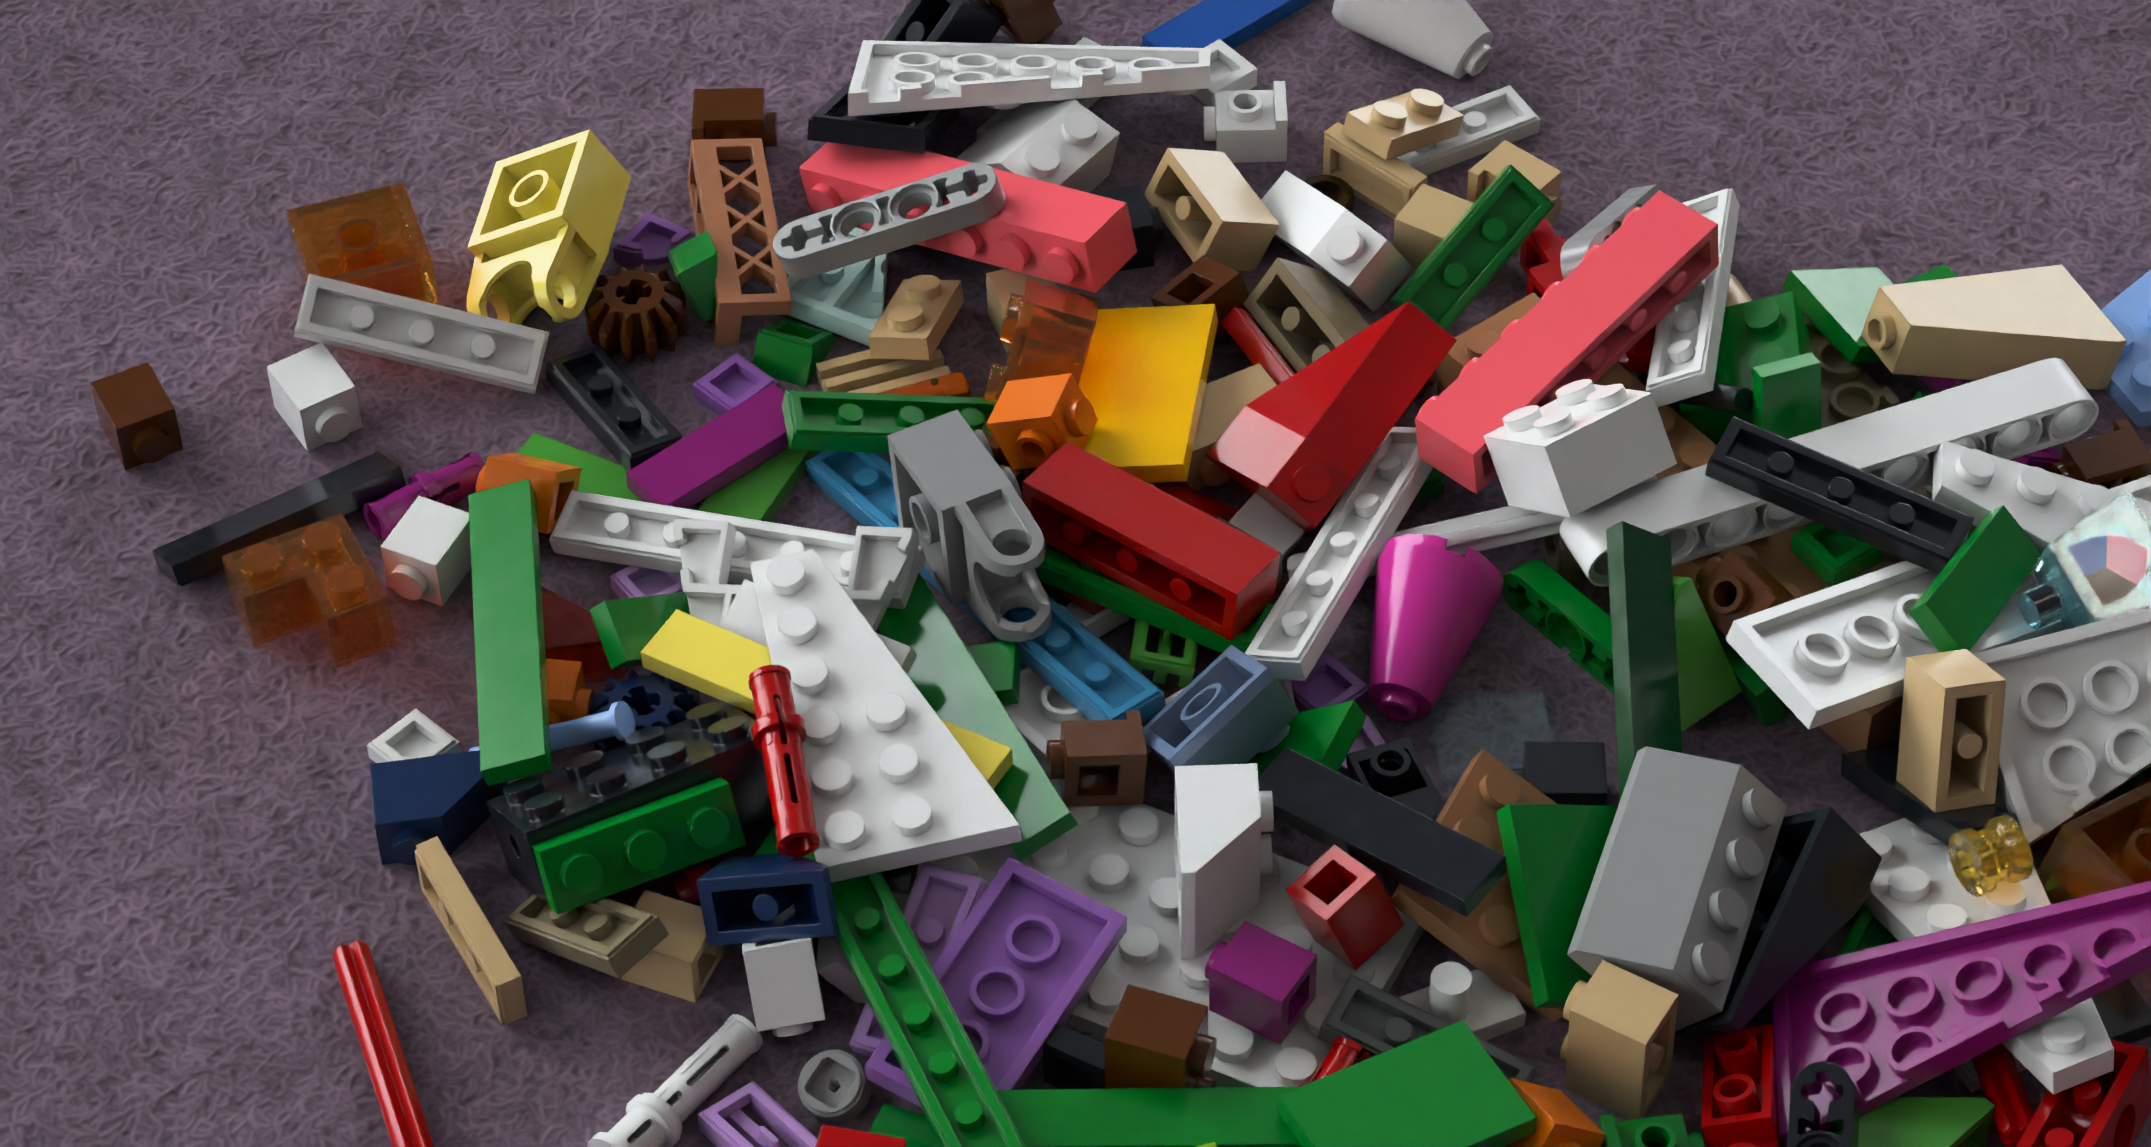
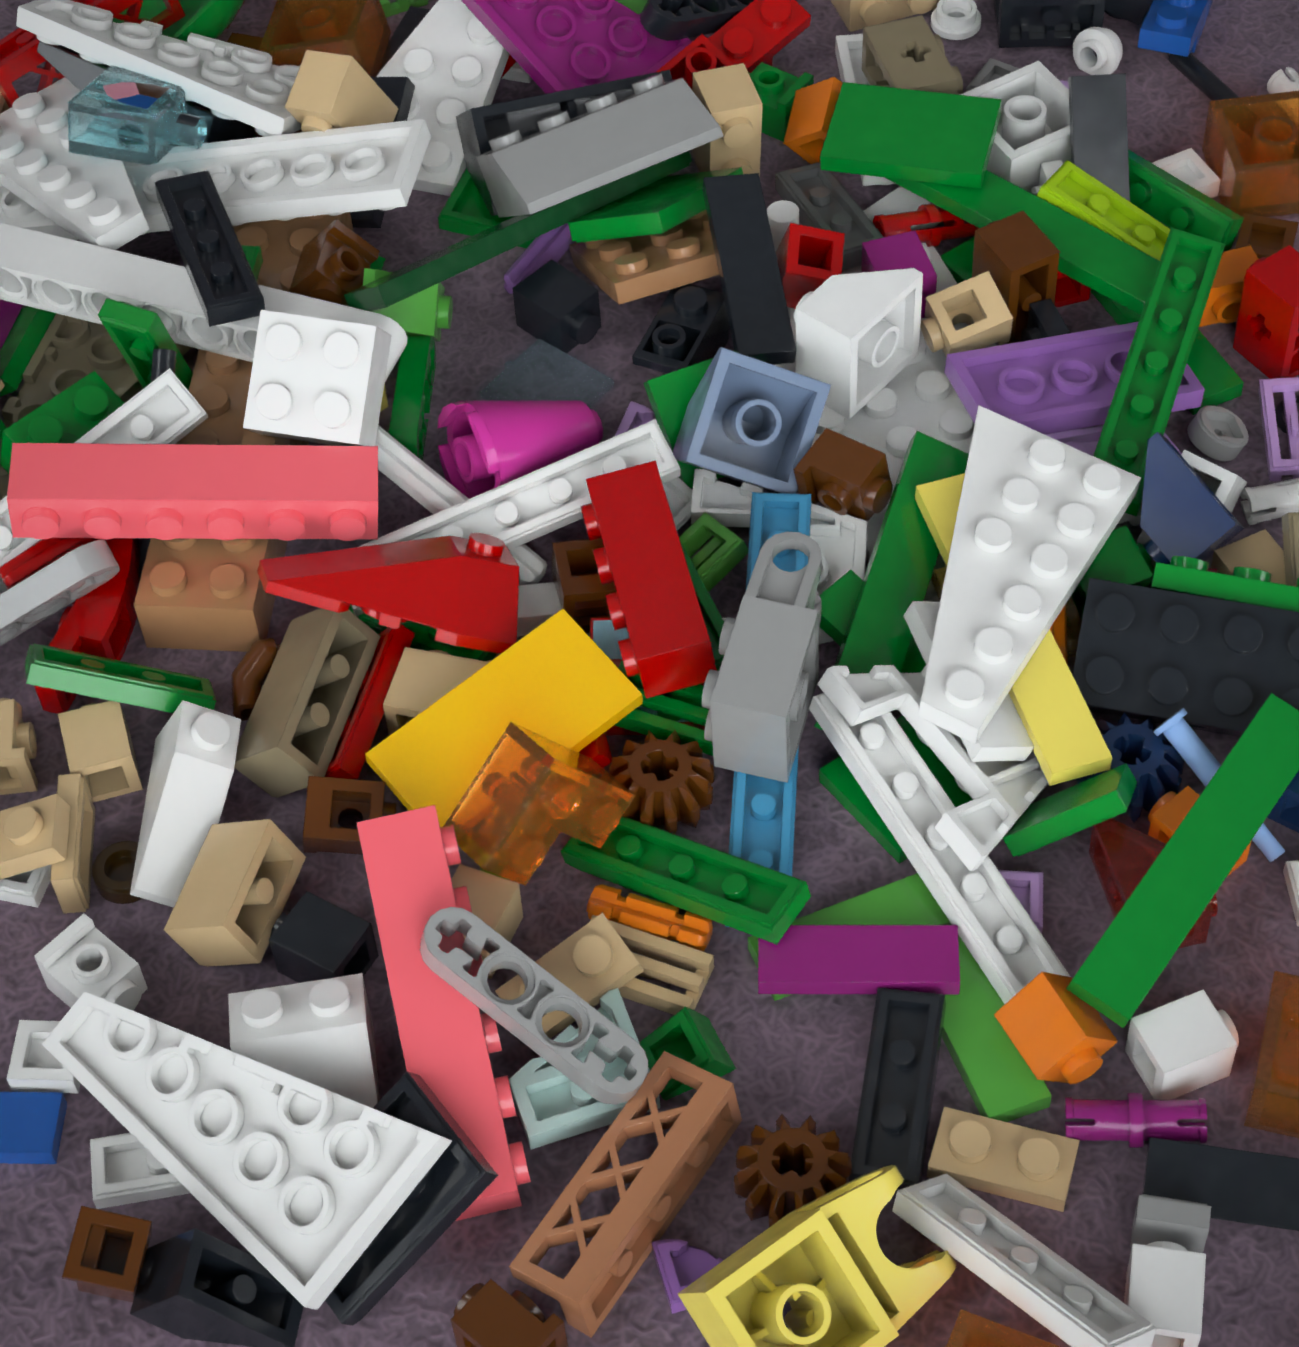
camera: 135 degrees left, 5 degrees up
(344, 438) = (1171, 1221): none -> light grey tile
(505, 423) = (1004, 1158): none -> tan plate
(696, 271) = (708, 1151): green slope -> none
(730, 384) = (772, 1048): medium lavender tile -> none
(780, 738) = (1096, 552): red pin -> none
(1039, 417) = (622, 713): orange brick -> none
(1151, 960) = (968, 302): none -> tan brick
(1976, 582) = (212, 153): green tile -> none
(1990, 855) = (410, 57): clear yellow wheel -> none

